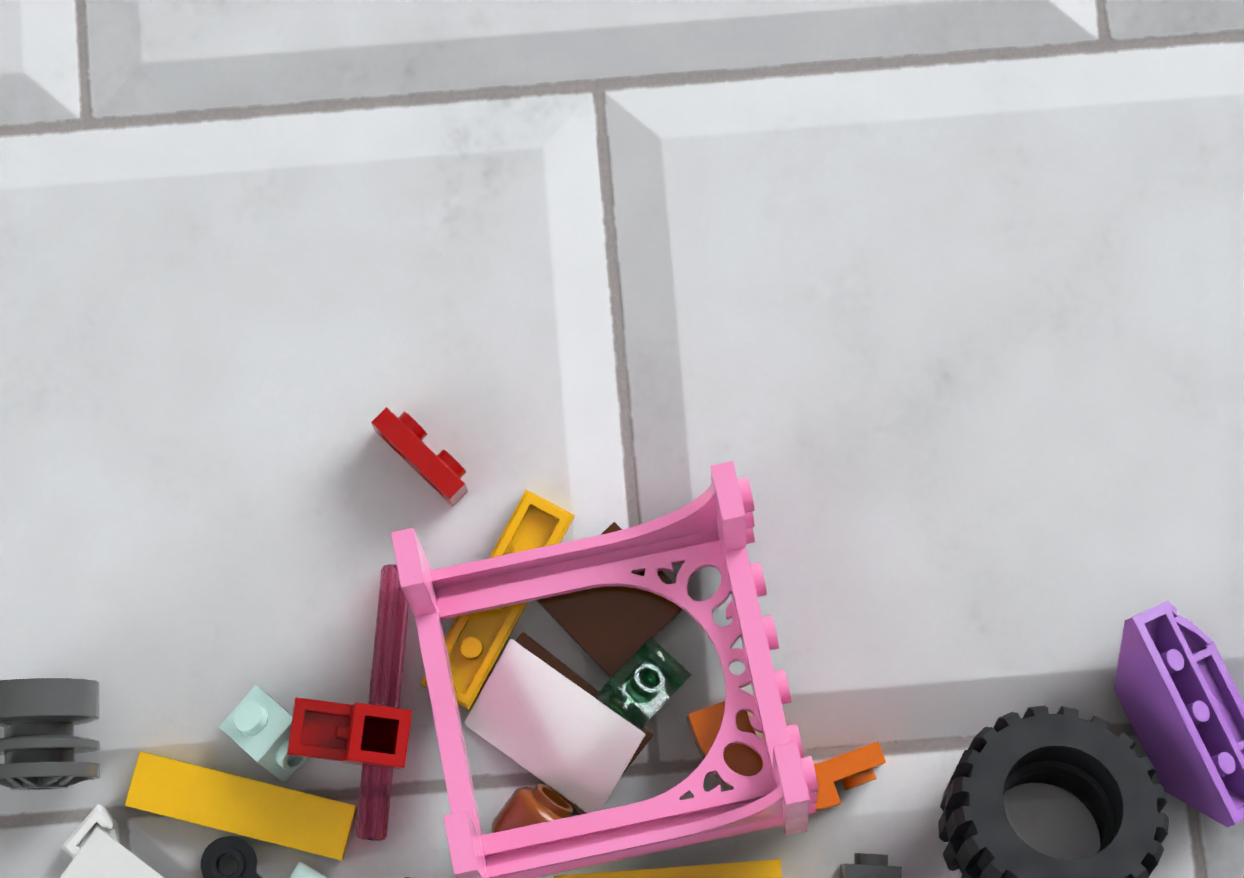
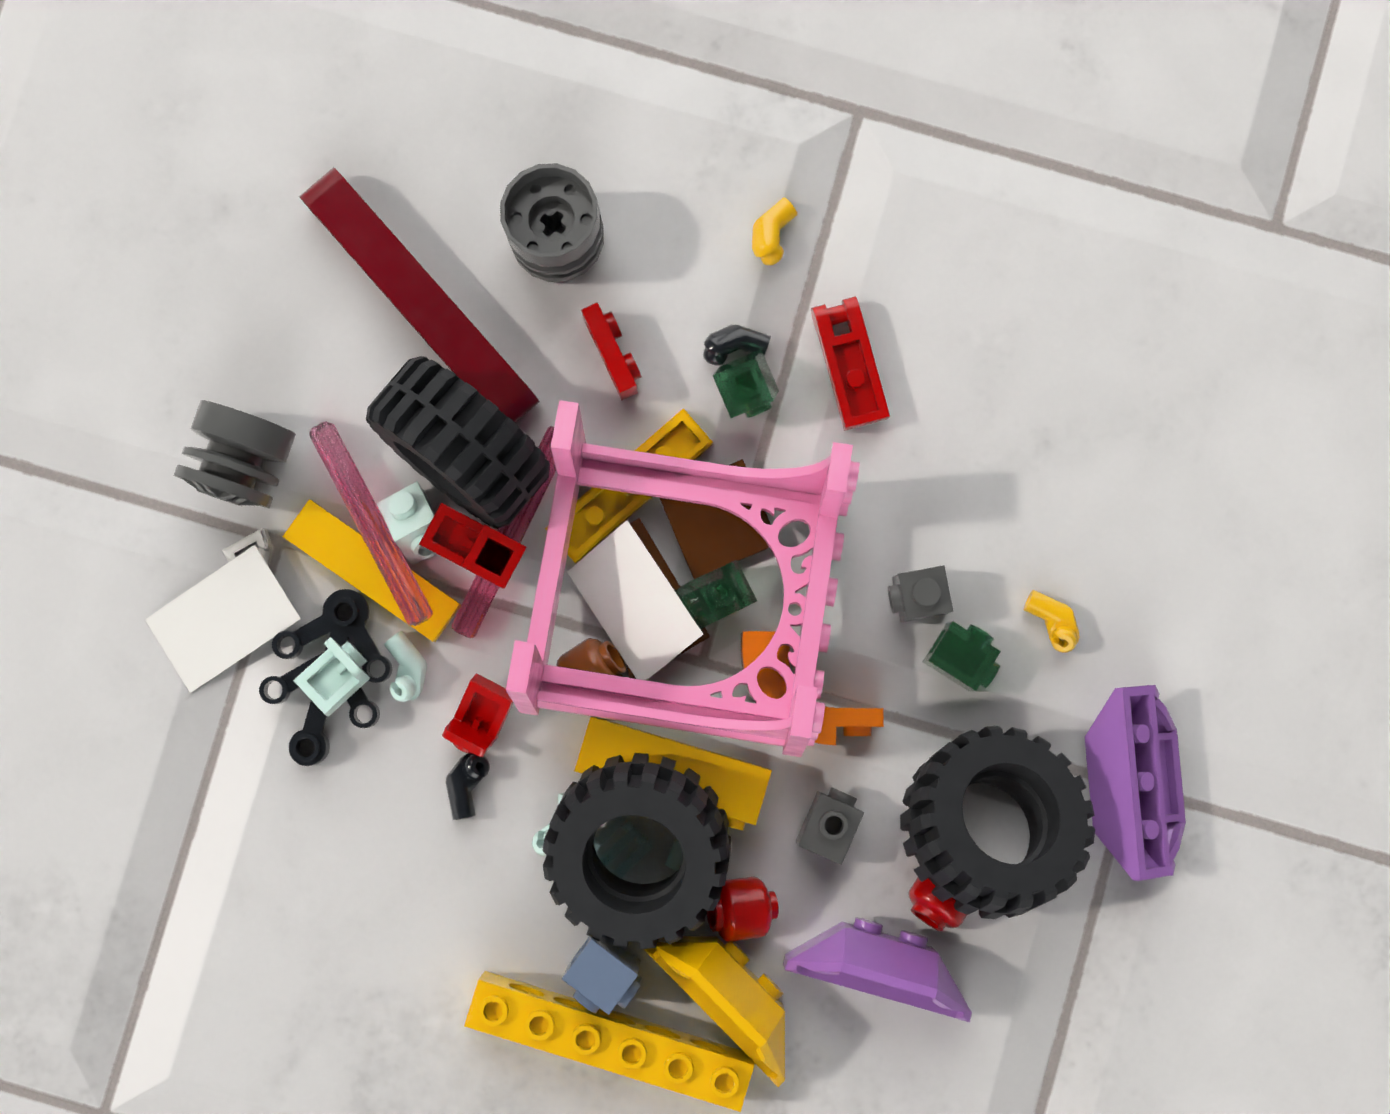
camera: 20 degrees right, 5 degrees up
(182, 478) = (416, 294): none -> dark red beam
(221, 752) = (370, 524): none -> clear pink axle
(285, 314) = (545, 200): none -> dark grey wheel
(291, 621) = (458, 441): none -> black tyre
(545, 257) = (767, 231): none -> yellow arm
(551, 392) = (731, 339): none -> black arm
(588, 437) = (746, 385): none -> clear green brick
(695, 371) = (850, 364): none -> red plate
(870, 598) = (920, 594): none -> dark grey brick
(946, 649) = (964, 656): none -> clear green brick
(1034, 568) = (1058, 620): none -> yellow arm

